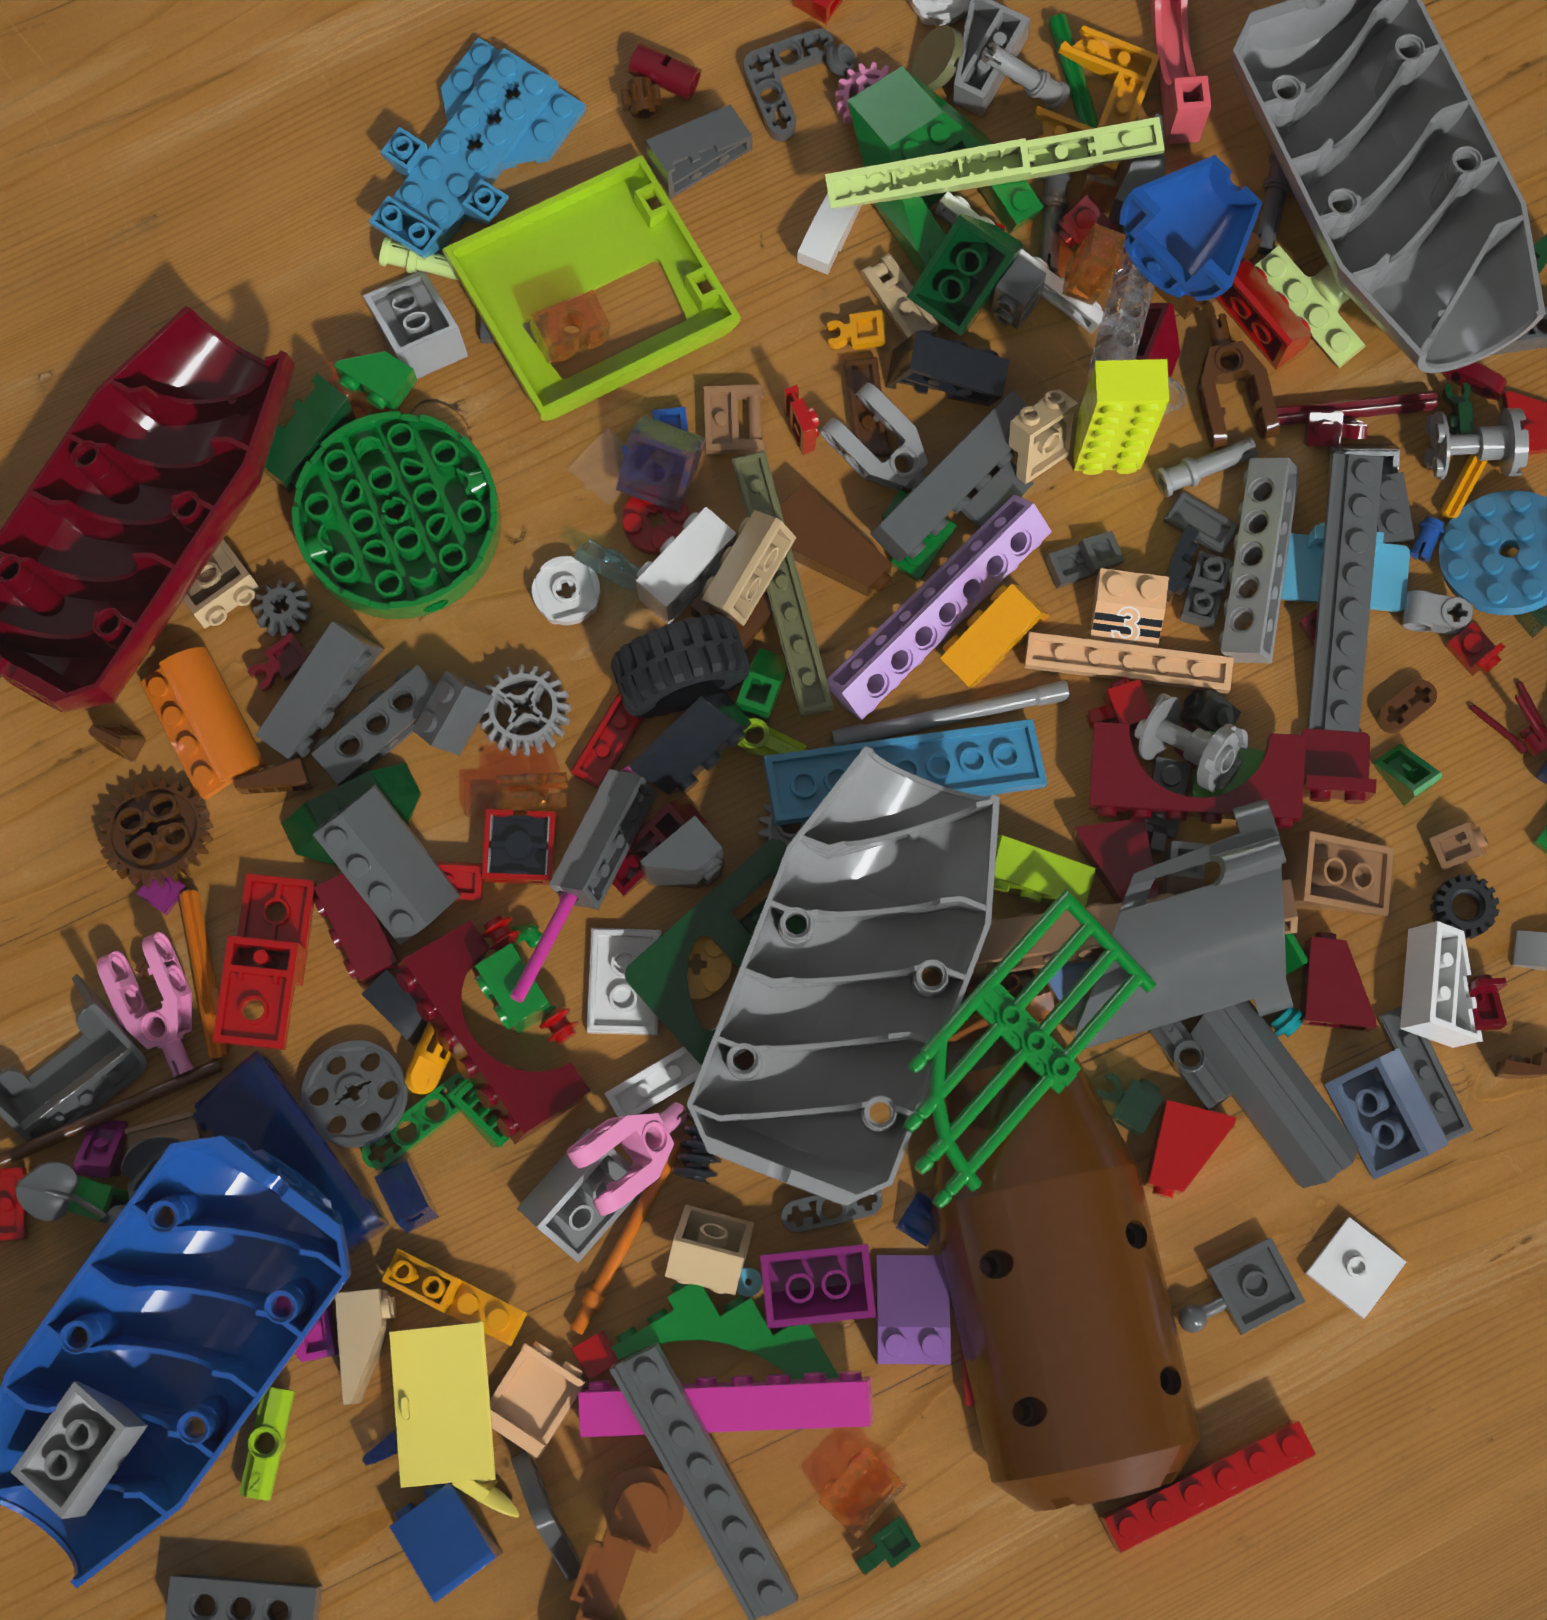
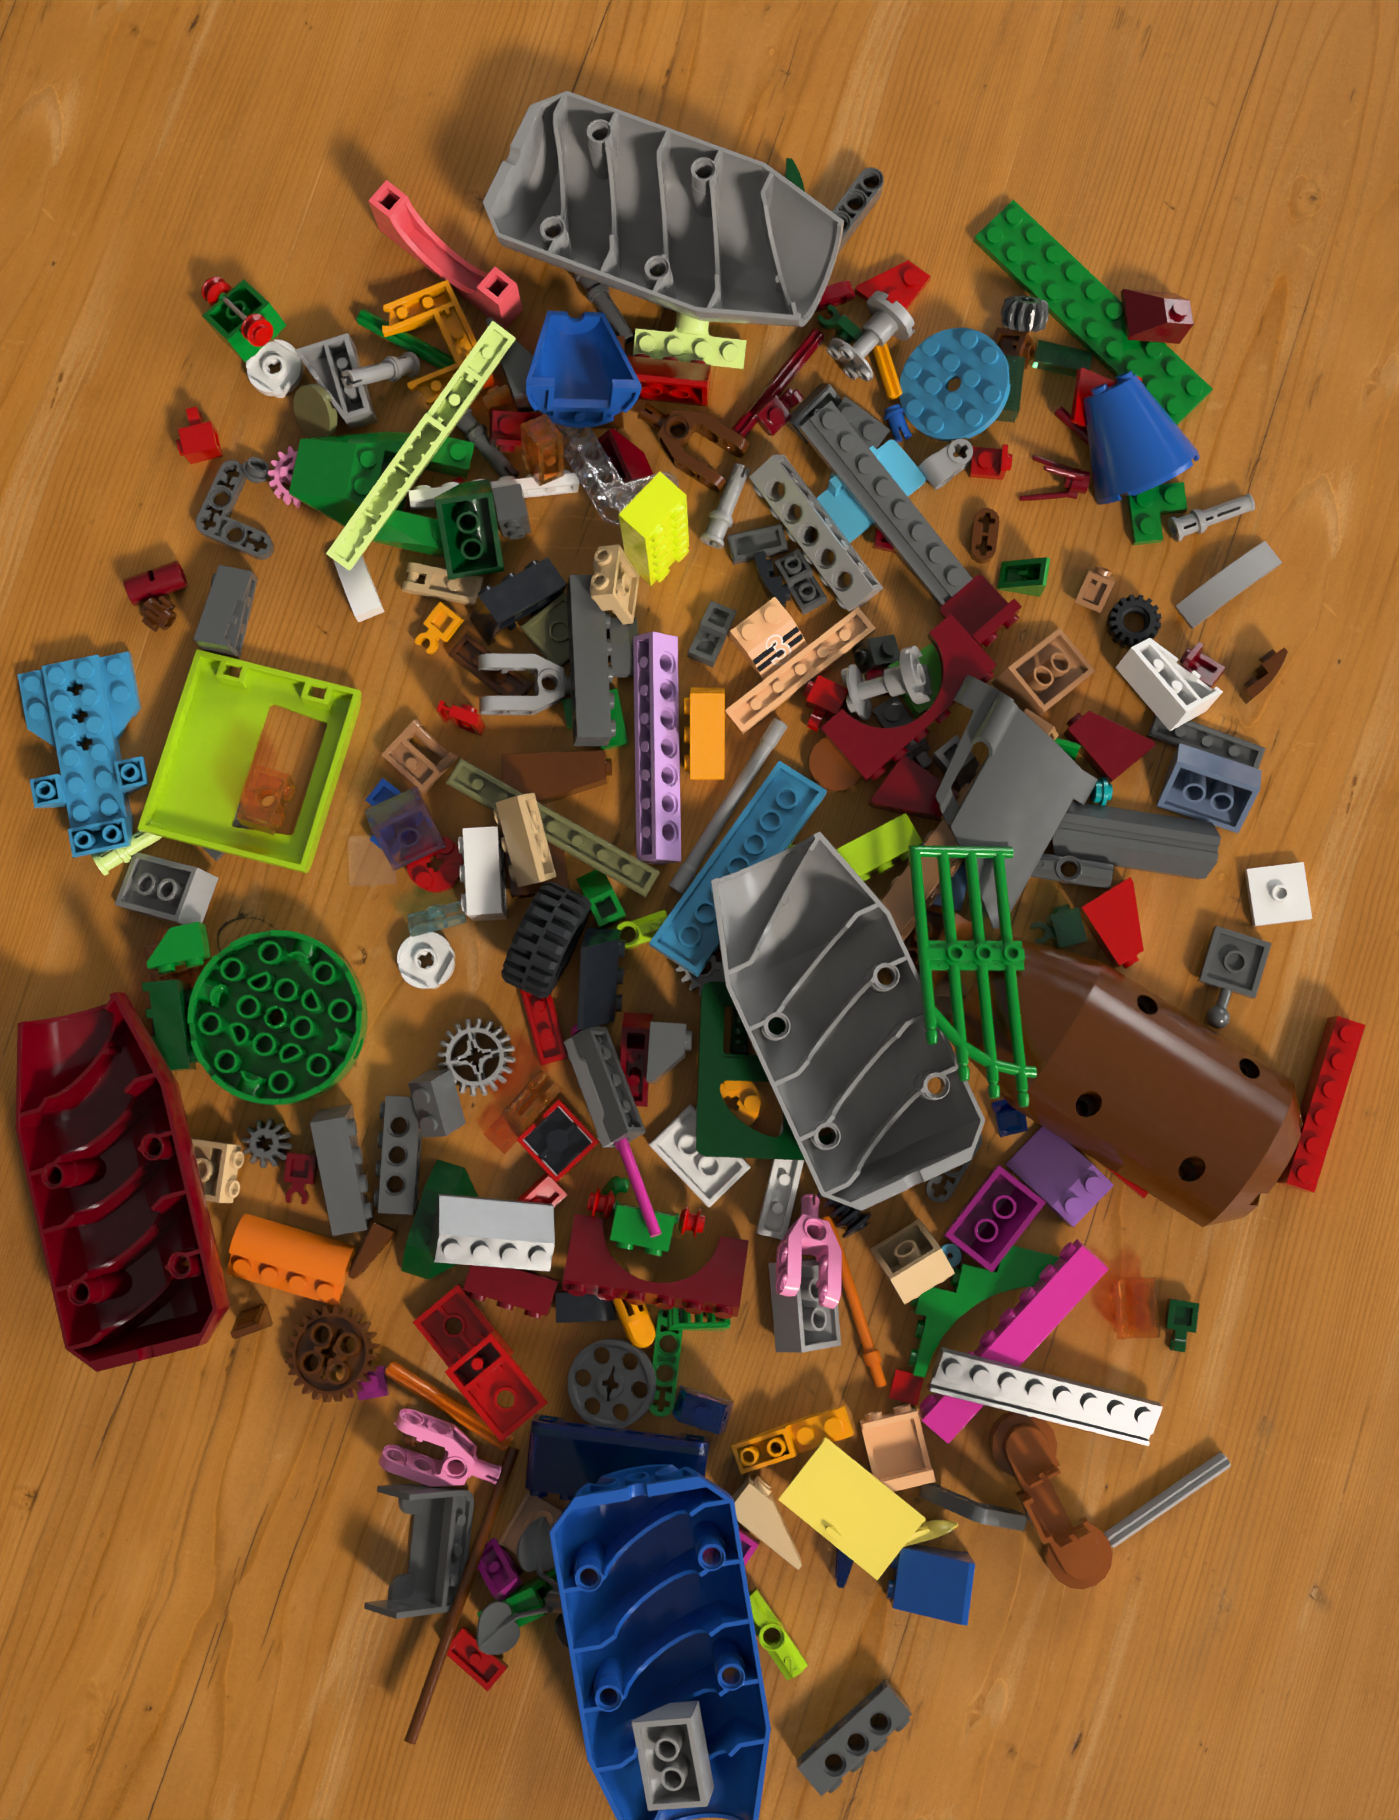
camera: 40 degrees left, 5 degrees up
(949, 423) = (550, 631): none -> olive tile
(1070, 770) = (830, 768): none -> dark orange tile

